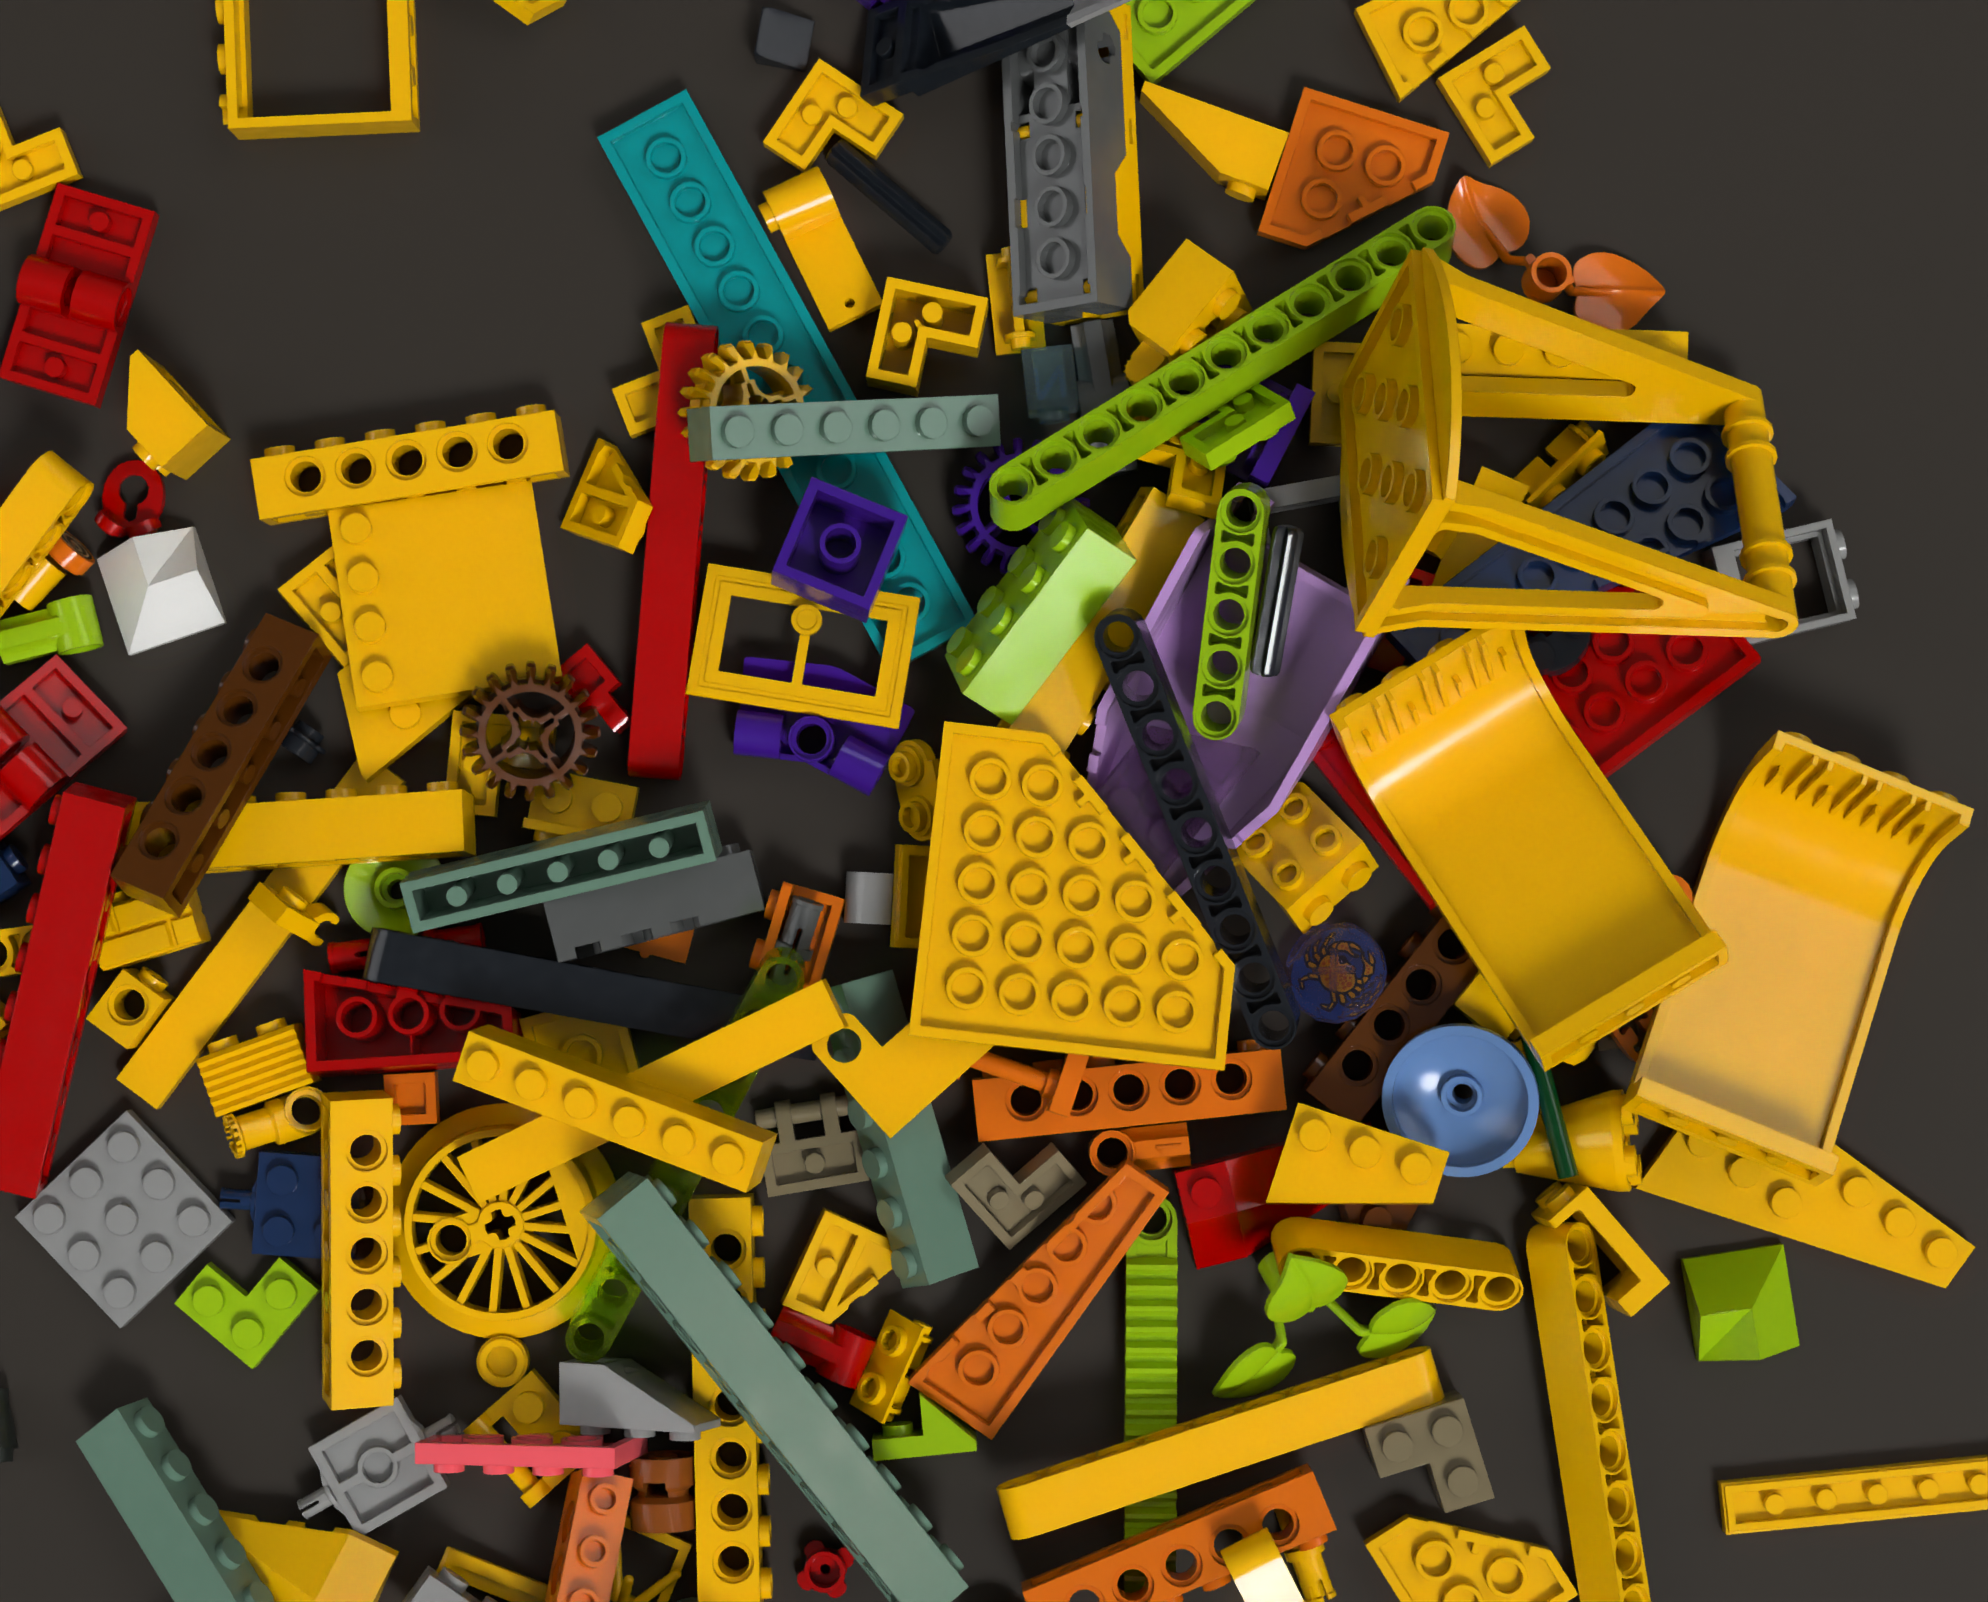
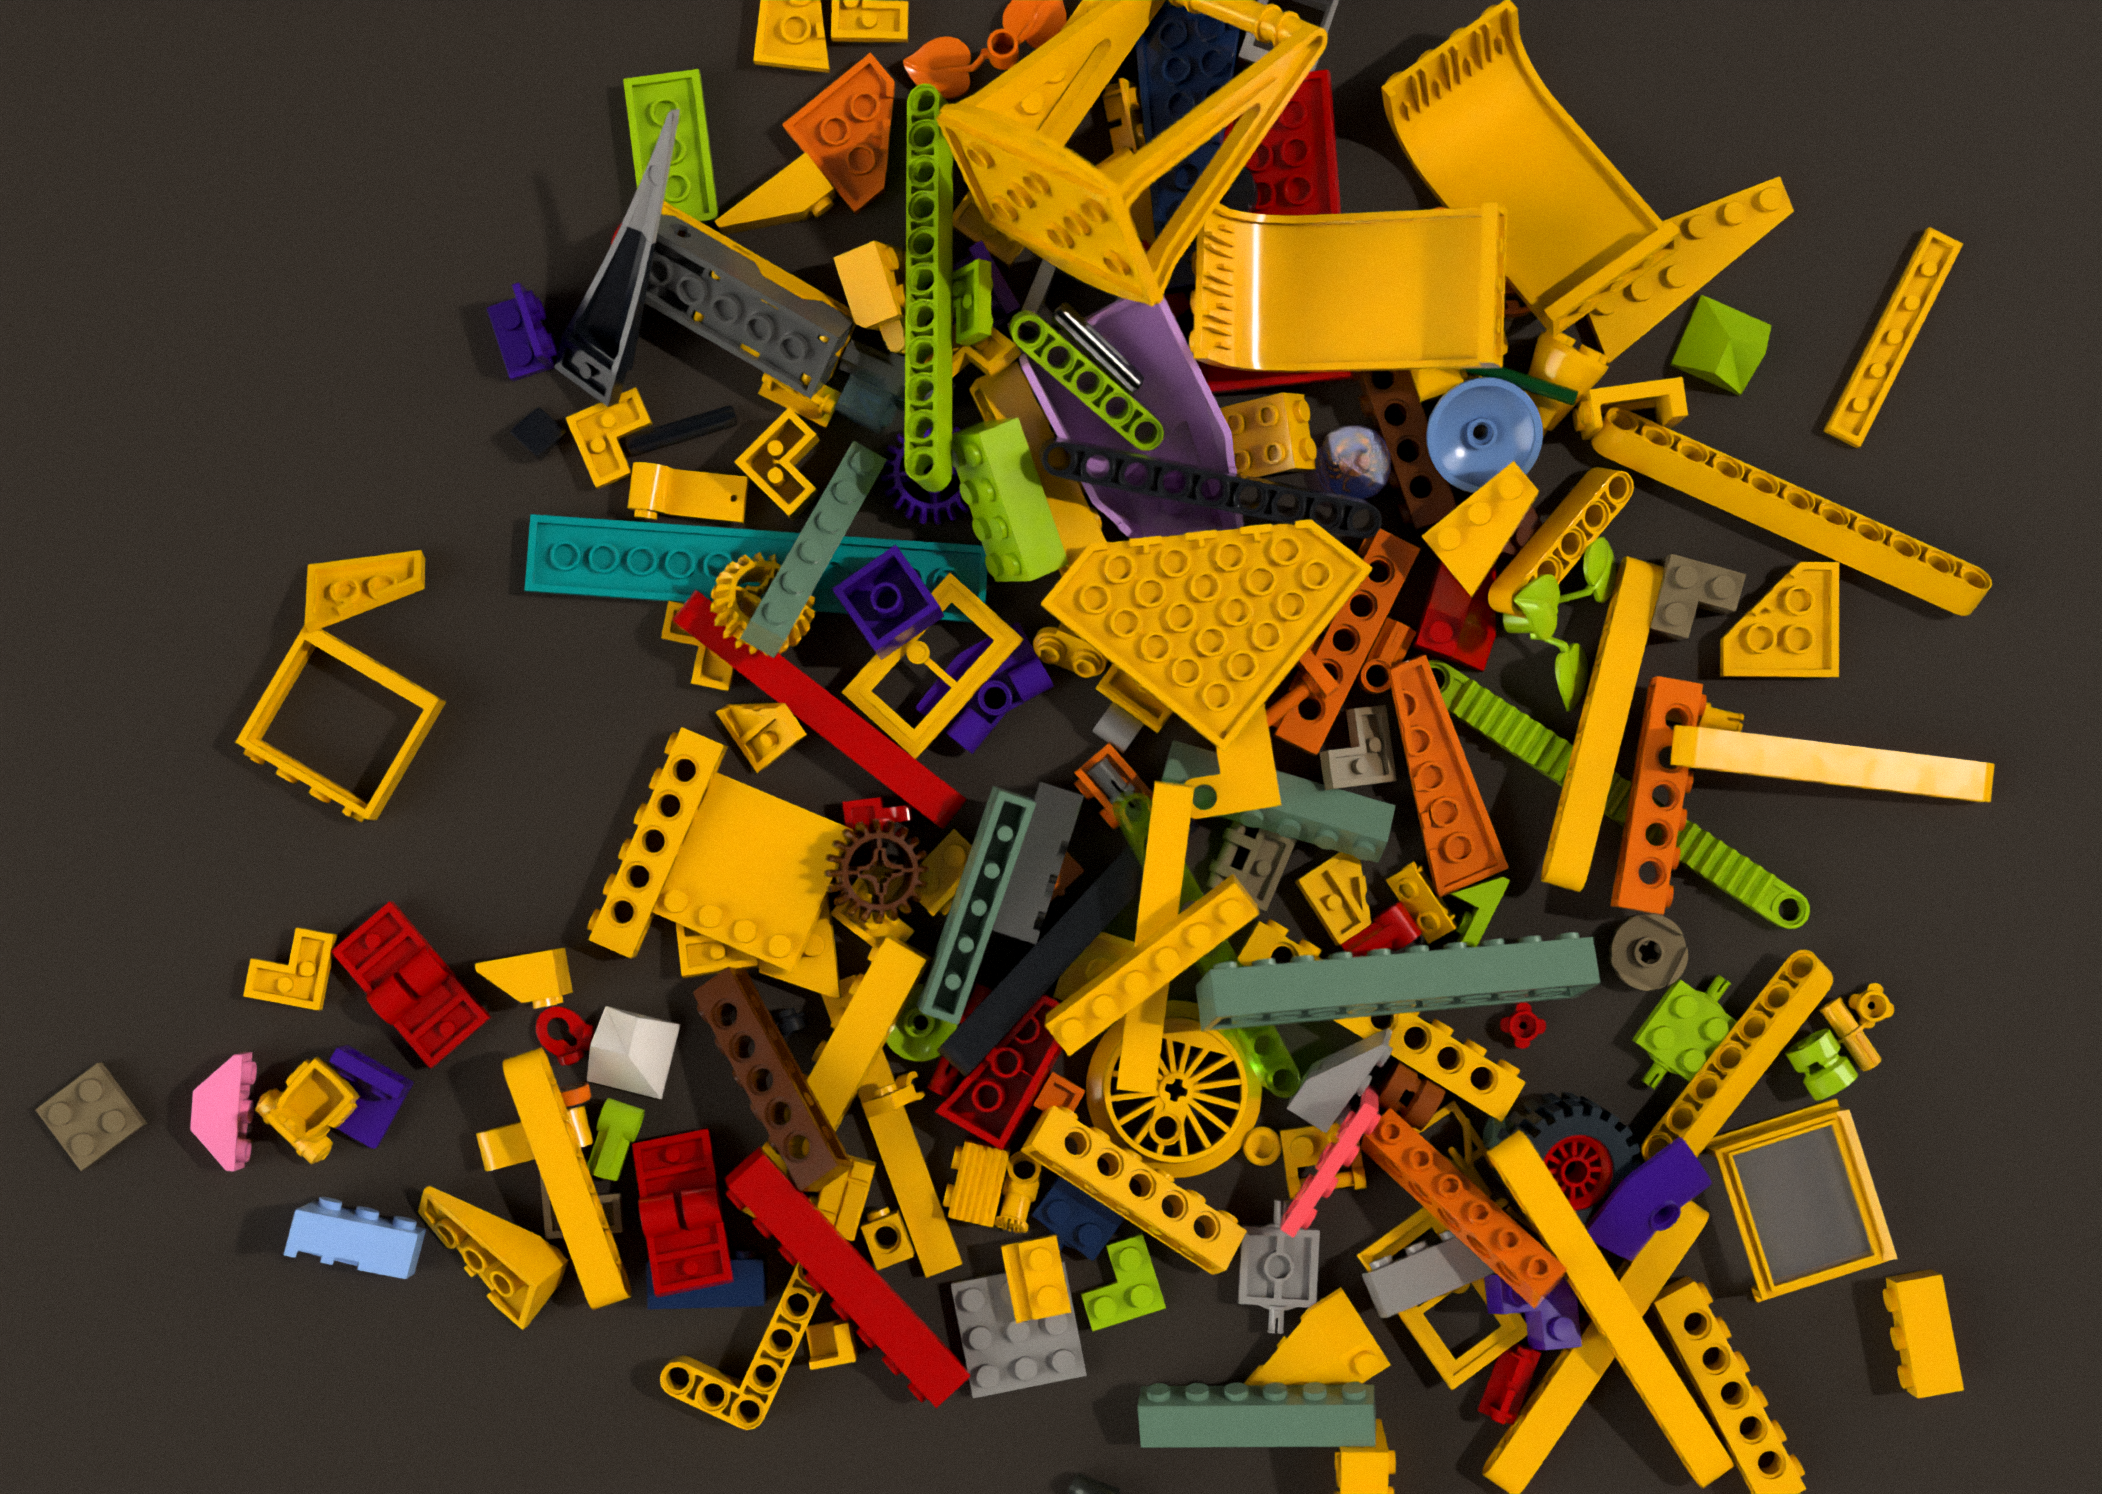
camera: 55 degrees left, 0 degrees up
(190, 1202) = (1036, 1278): none -> yellow plate

